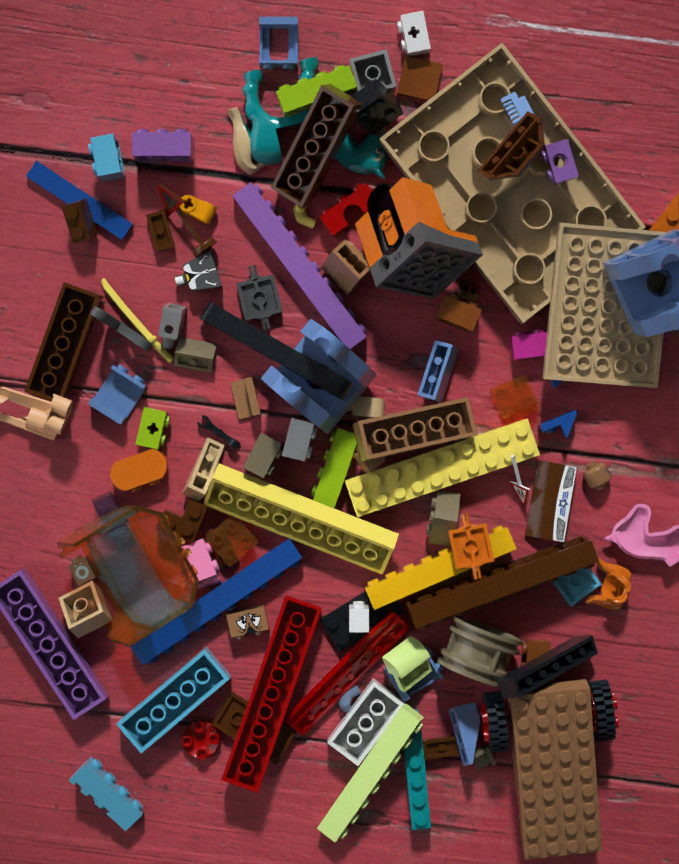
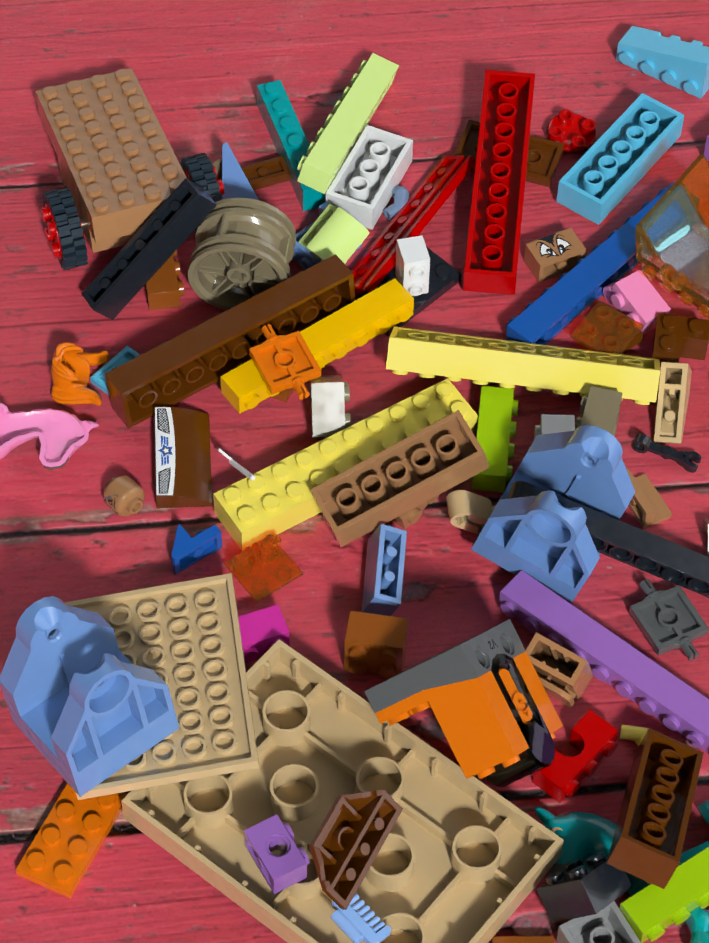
camera: 165 degrees right, 35 degrees down
(469, 289) = (357, 666): dark brown tile -> none

